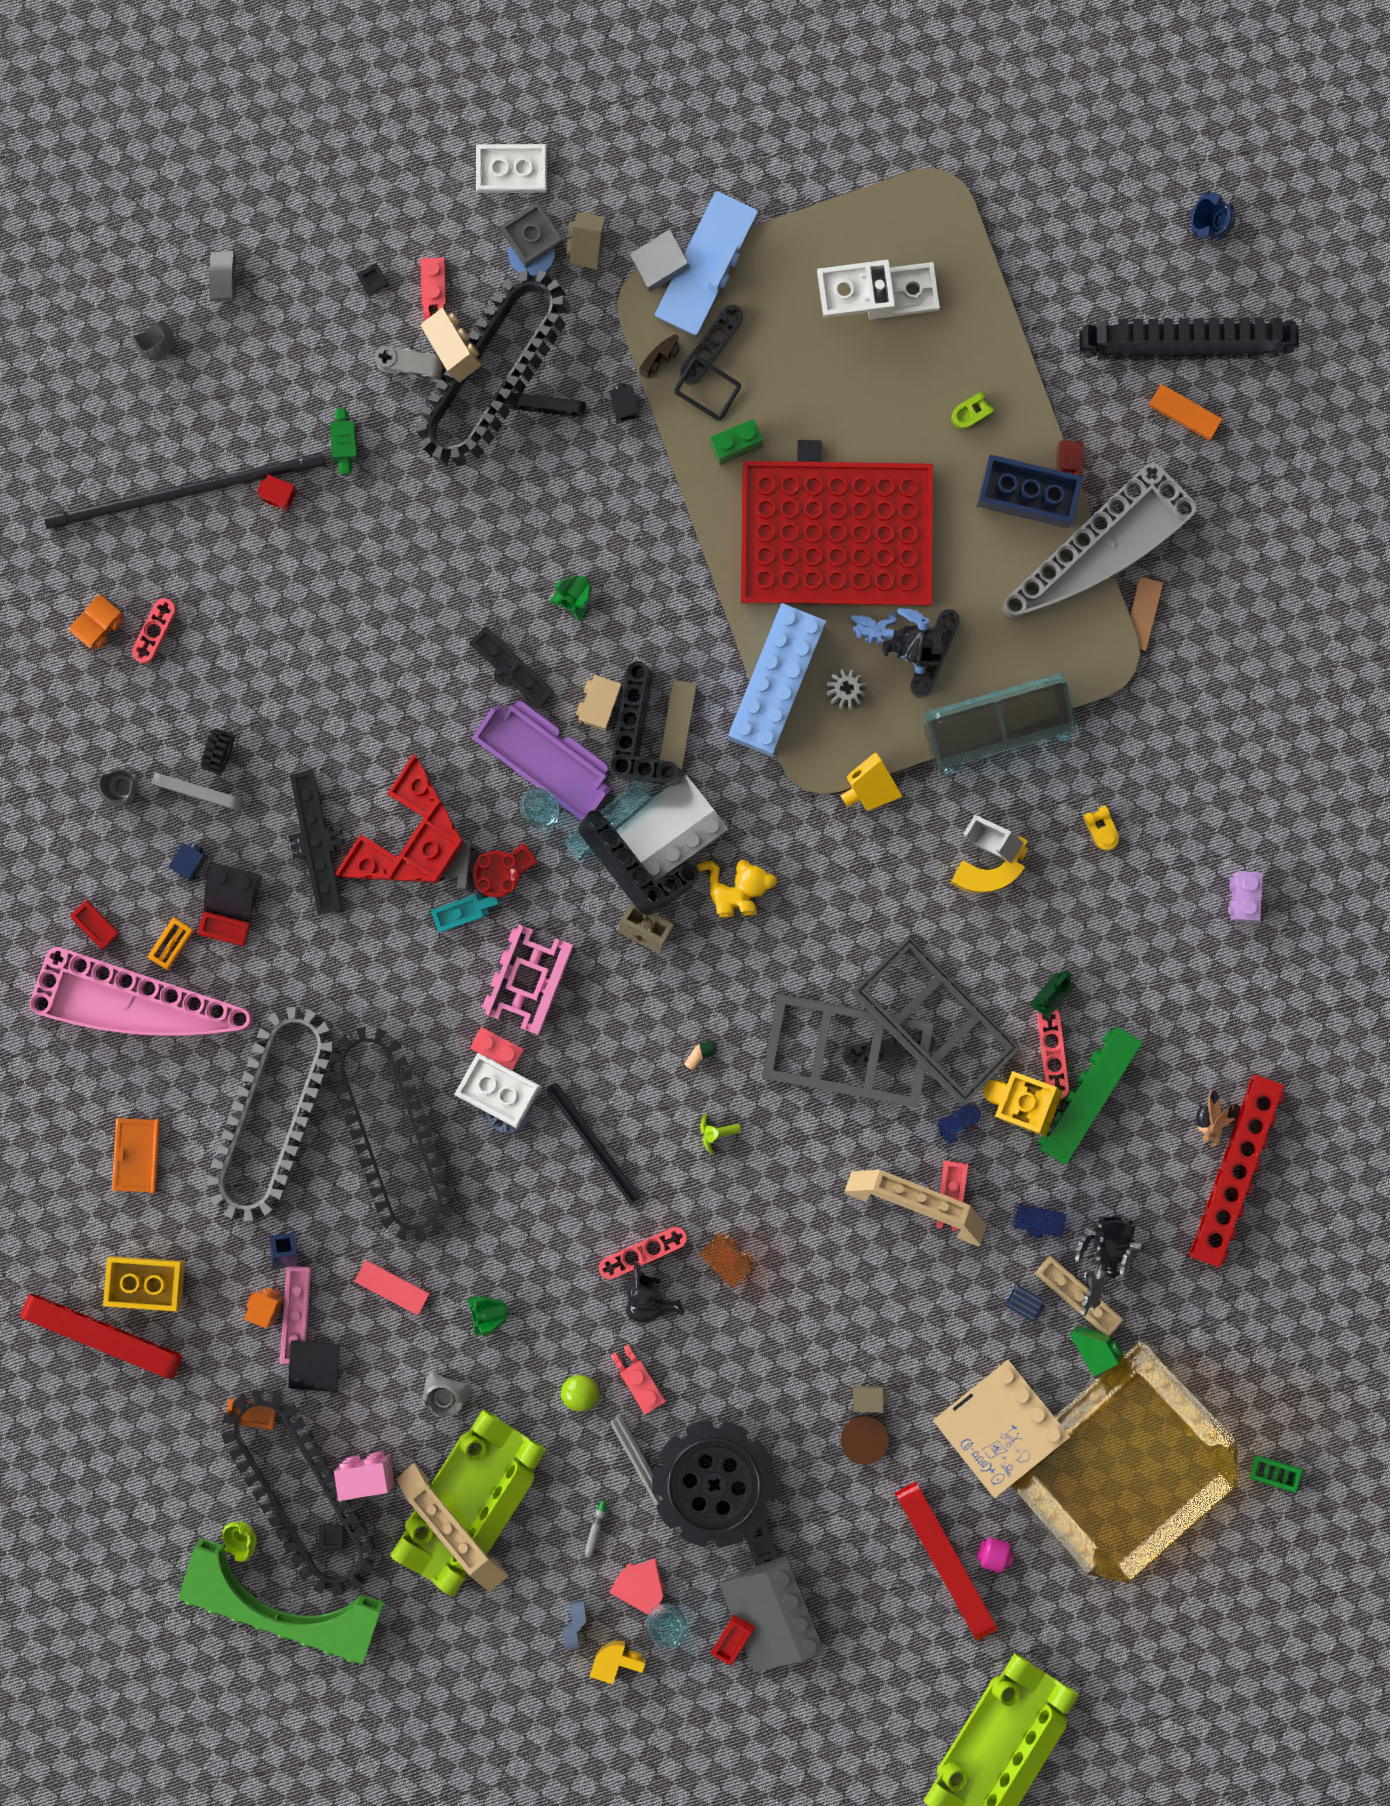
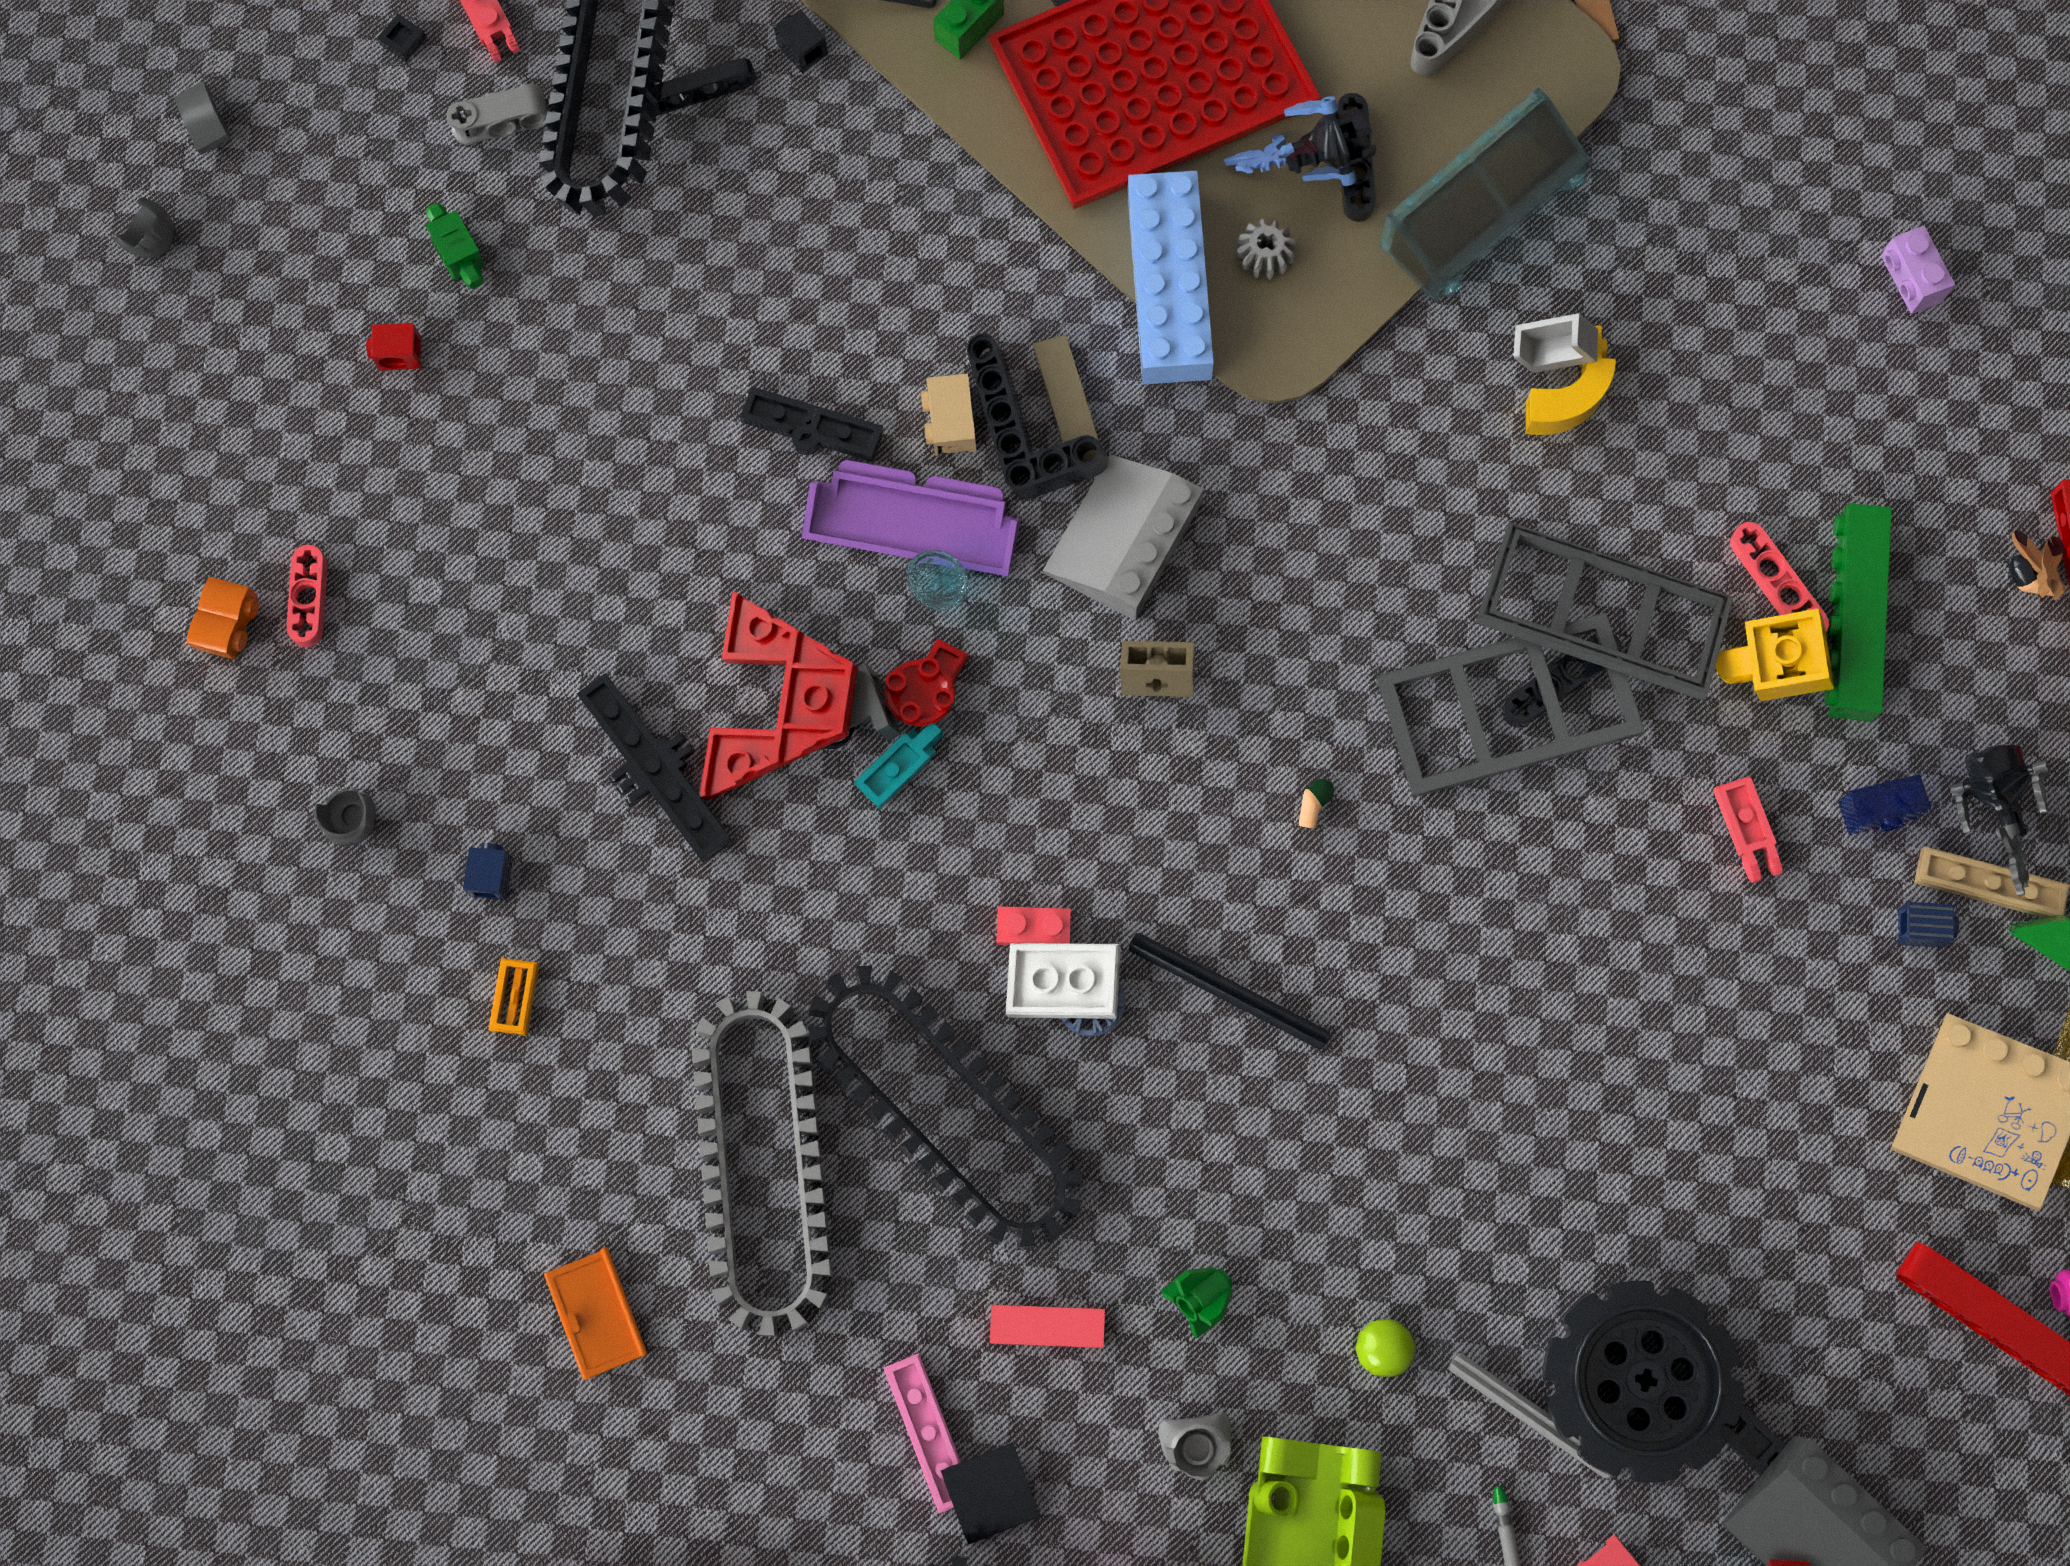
camera: 20 degrees left, 10 degrees down
(66, 517) = (122, 506): black piece -> none
(94, 925) = (395, 1021): red tile -> none
(110, 1006) = (468, 1121): bright pink beam -> none
(144, 1283) = (689, 1490): yellow brick -> none
(197, 791) = (458, 775): light grey beam -> none
(217, 751) = (463, 706): black tyre -> none
(223, 928) = (579, 942): red tile -> none
(231, 892) = (567, 885): black slope -> none
(264, 1307) = (879, 1438): orange brick -> none
(283, 1250) = (869, 1345): dark blue brick -> none
(451, 344) = (542, 60): brick -> none
(544, 985) = (1059, 811): bright pink fence -> none
(573, 595) = (849, 296): green brick -> none
(616, 812) = (1035, 559): clear light blue tile -> none
(633, 868) = (1097, 599): black beam -> none
(639, 1382) = (1460, 1291): coral hinge -> none
(641, 1249) = (1369, 1105): coral beam -> none
(645, 1300) = (1413, 1172): black piece -> none
(712, 1133) = (1386, 897): lime plant -> none
(726, 1259) = (1493, 1060): clear orange brick -> none
(749, 883) = (1265, 549): yellow animal -> none
(864, 1440) = (1813, 1220): reddish brown tile -> none
(869, 1398) = (1789, 1158): dark tan brick -> none
(871, 785) = (1360, 350): yellow torso -> none
(918, 1199) = (1626, 867): tan slope -> none
(964, 1116) = (1707, 721): clear blue leg -> none
(1053, 993) = (1739, 503): dark green hinge -> none
(1106, 836) = (1694, 284): yellow plate -> none

